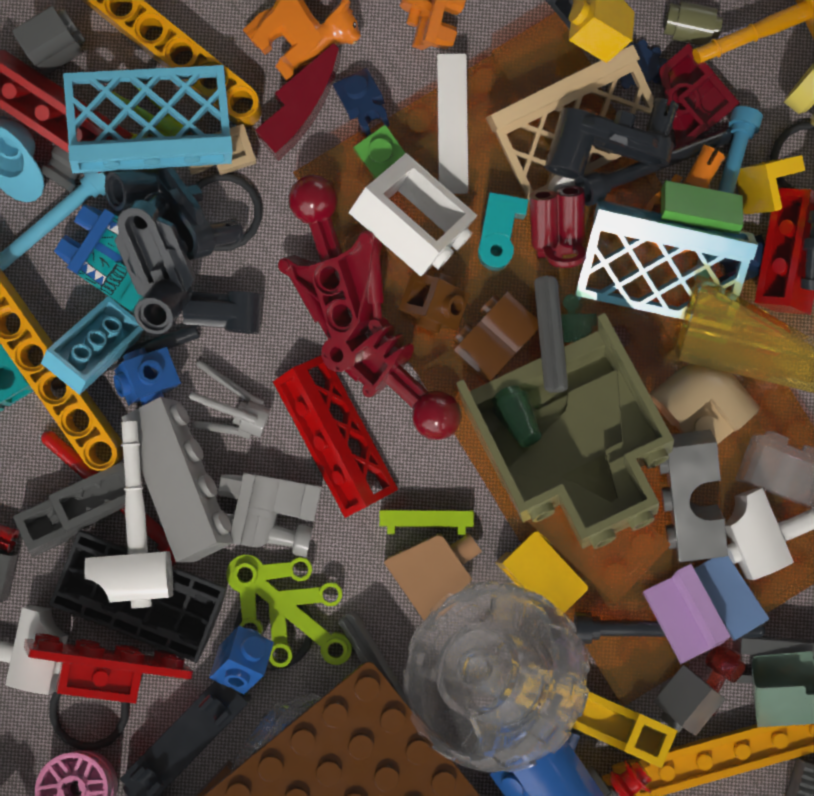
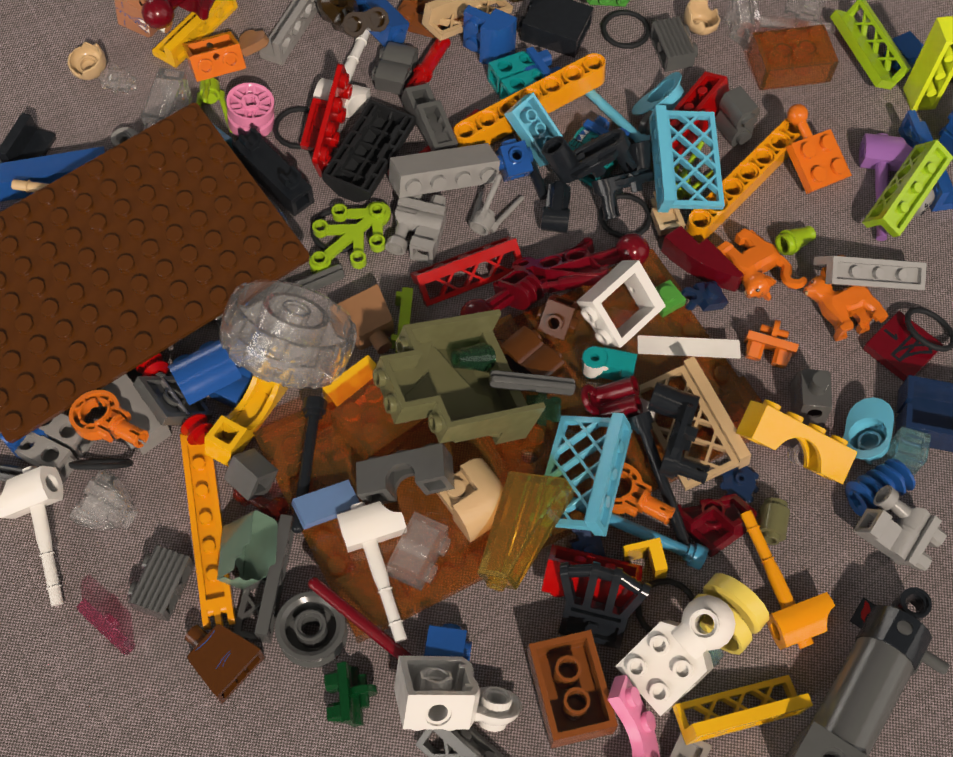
camera: 95 degrees right, 25 degrees down
(138, 574) = (384, 139): white piece -> none
(241, 659) = (321, 196): blue brick -> none
(686, 614) = (315, 471): lavender panel -> none
(702, 207) = (625, 492): bright green tile -> none

